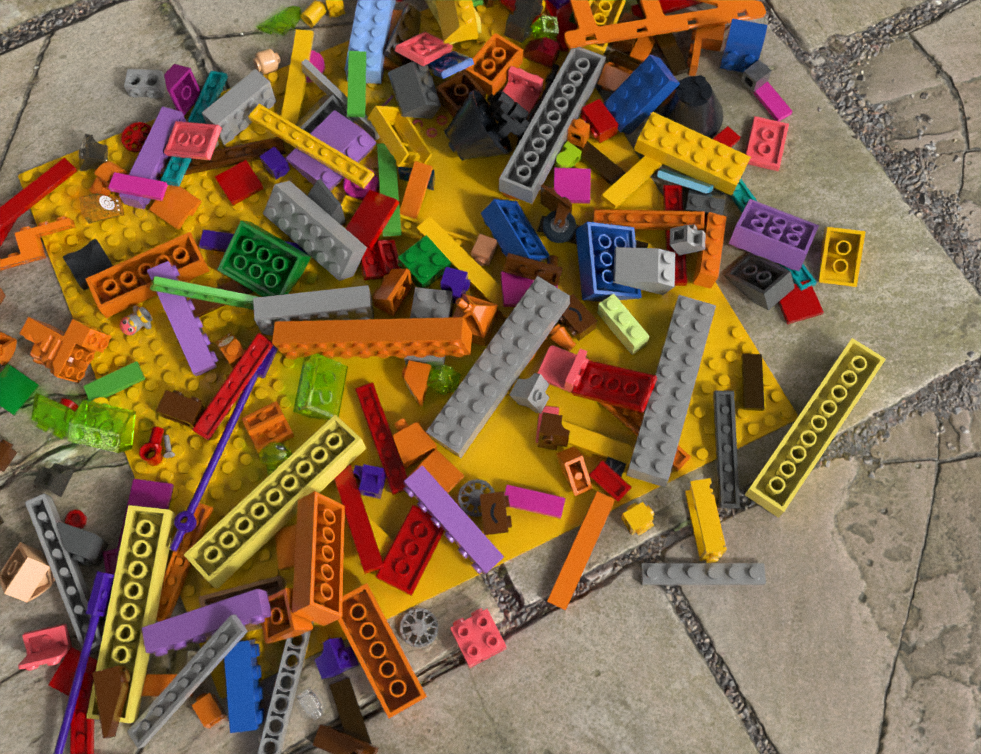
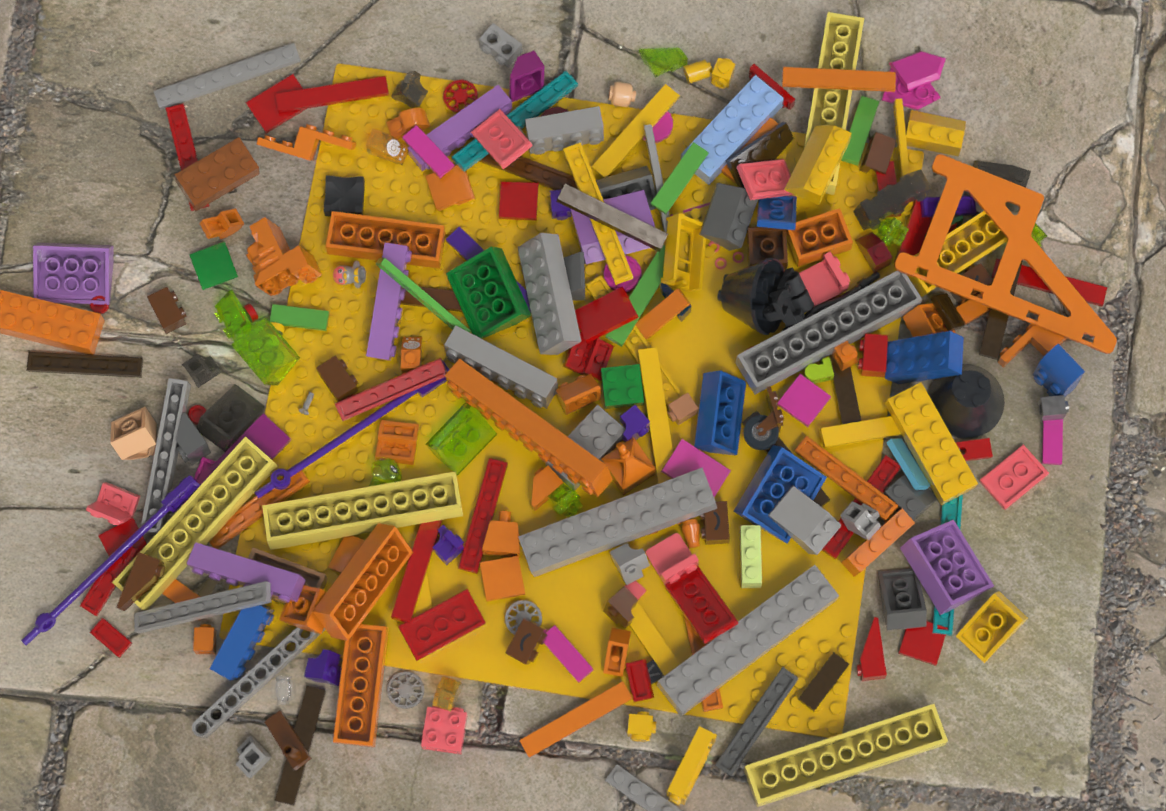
camera: 35 degrees right, 5 degrees up
(105, 503) = (229, 417): none -> clear smoke slope
(153, 446) = (296, 395): red axle -> none
(324, 139) = (612, 217): none -> tile
(453, 520) = (489, 624): medium lavender brick -> none
(459, 604) = (447, 693): none -> clear yellow slope
(531, 268) = (709, 458): reddish brown piece -> none
(773, 338) = (872, 660): none -> red slope

